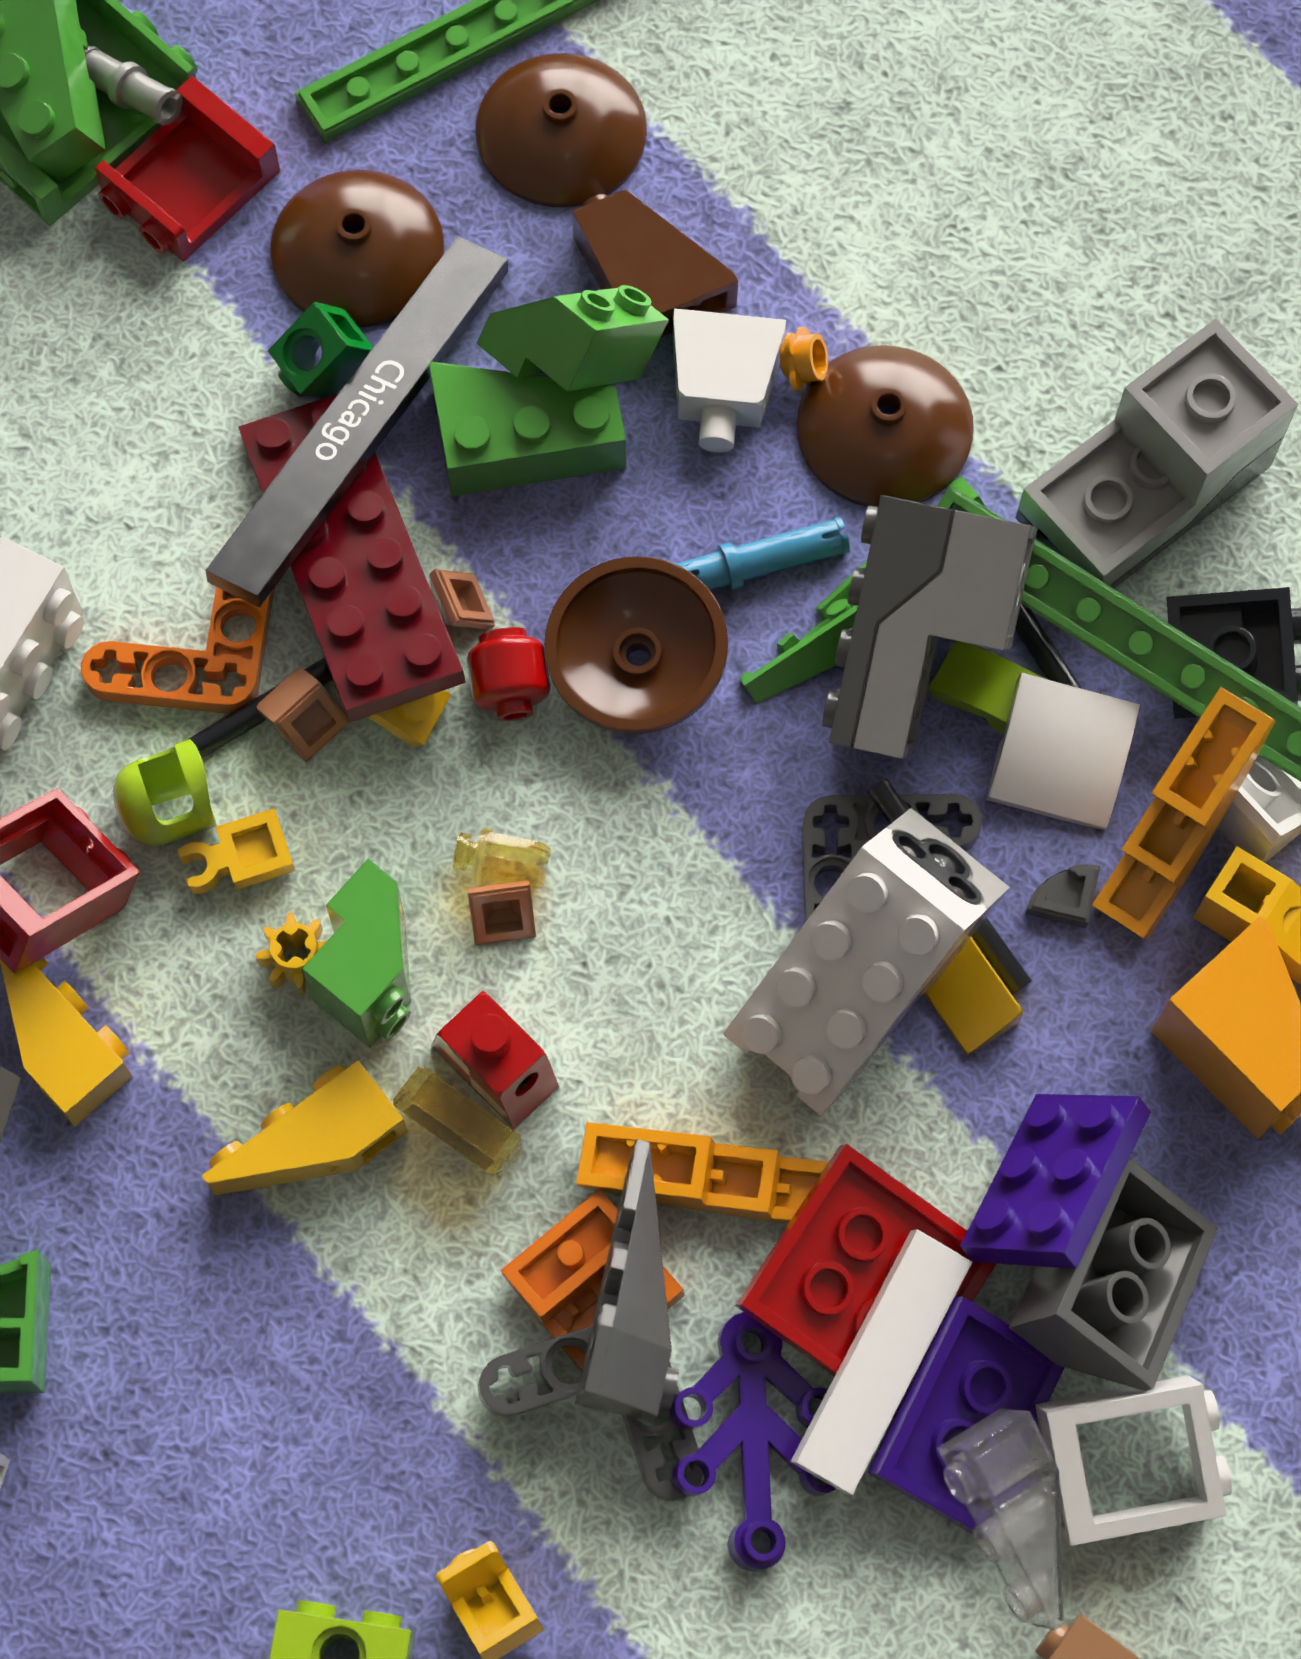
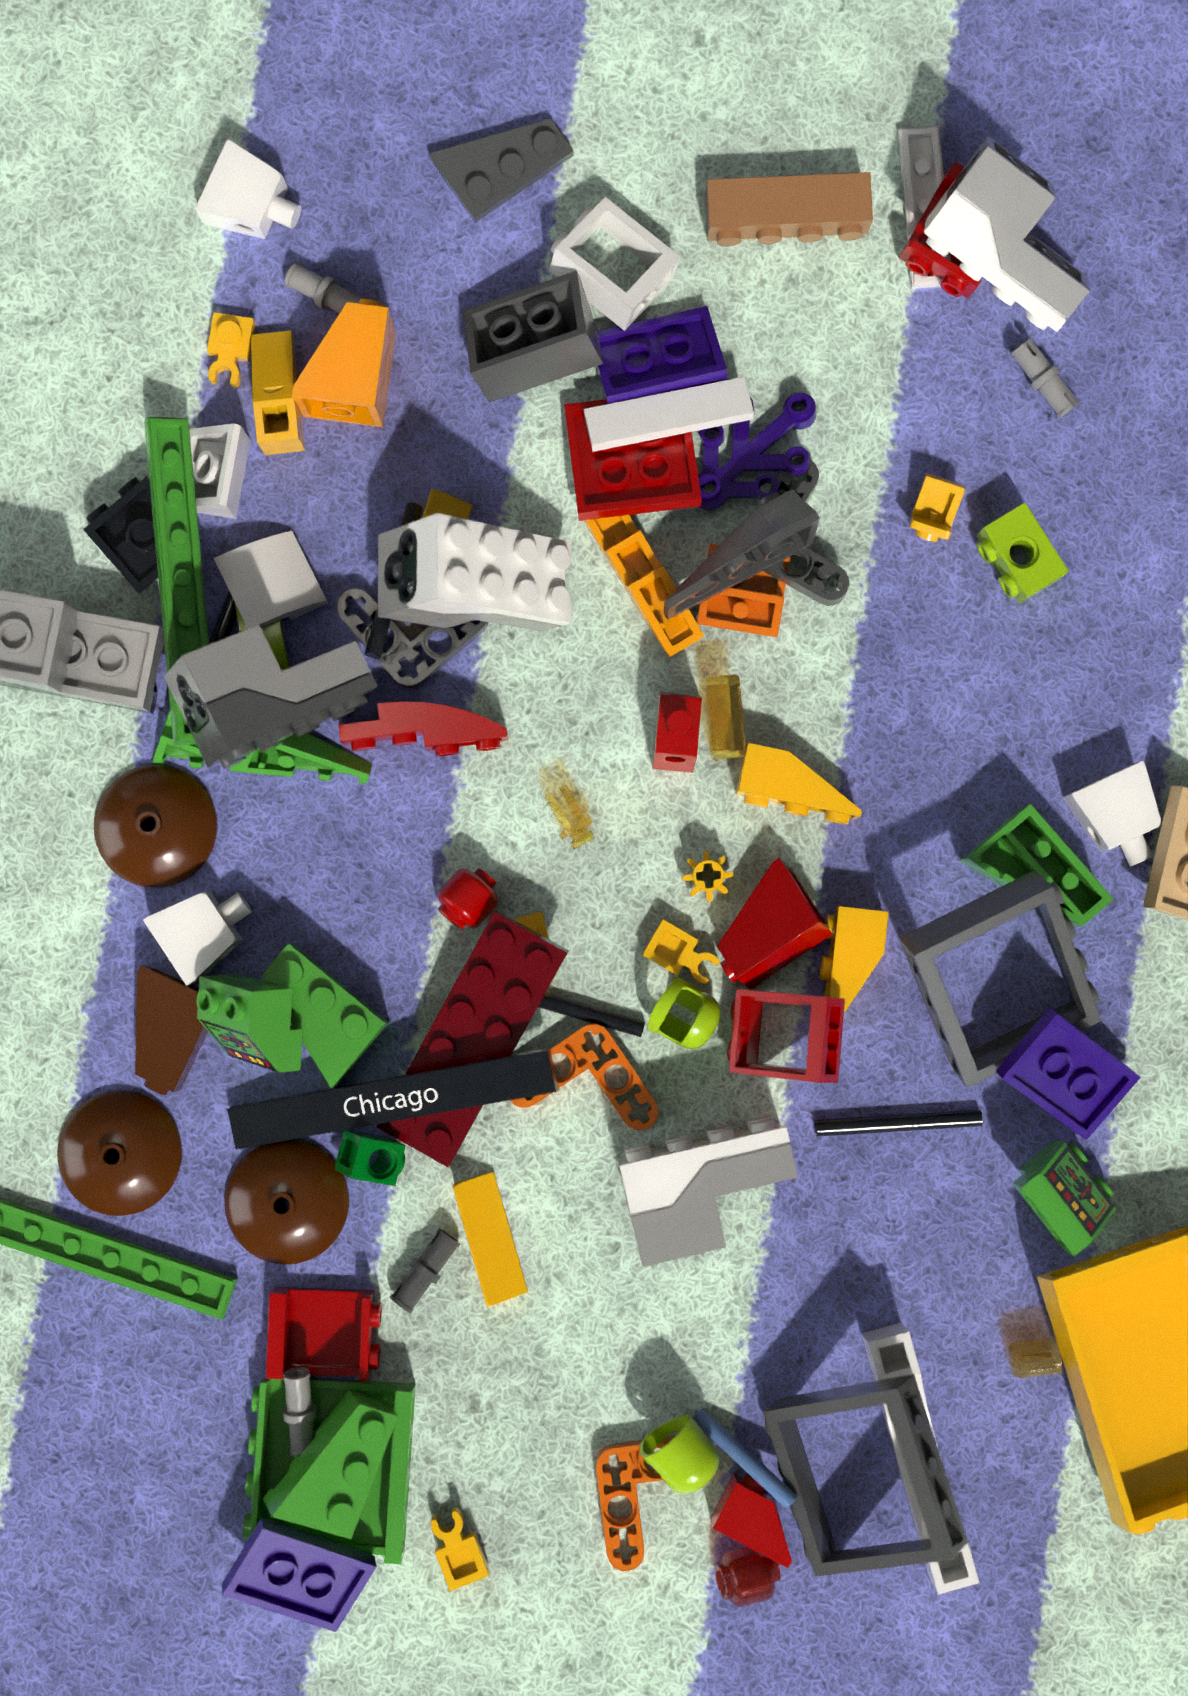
camera: 130 degrees left, 15 degrees up
(125, 409) = (490, 1238): none -> yellow slope
(153, 319) = (425, 1270): none -> dark grey pin
(171, 974) = (771, 928): none -> red slope
(303, 713) = (578, 989): nougat slope -> none
(364, 965) = (688, 826): bright green piece -> none
(460, 599) = (447, 961): nougat slope -> none
(501, 912) = (596, 794): nougat slope -> none
(632, 608) = (392, 811): reddish brown dish -> none
(734, 565) = (306, 835): dark azure pin -> none
(734, 800) = (441, 726): none -> red slope
(803, 358) = (154, 896): light orange plate -> none
(1014, 1499) = (680, 300): clear slope -> none
(1056, 1180) = (509, 399): dark purple plate -> none
(1066, 896) = (346, 522): dark grey tile -> none
(1184, 812) = (260, 482): light orange slope -> none

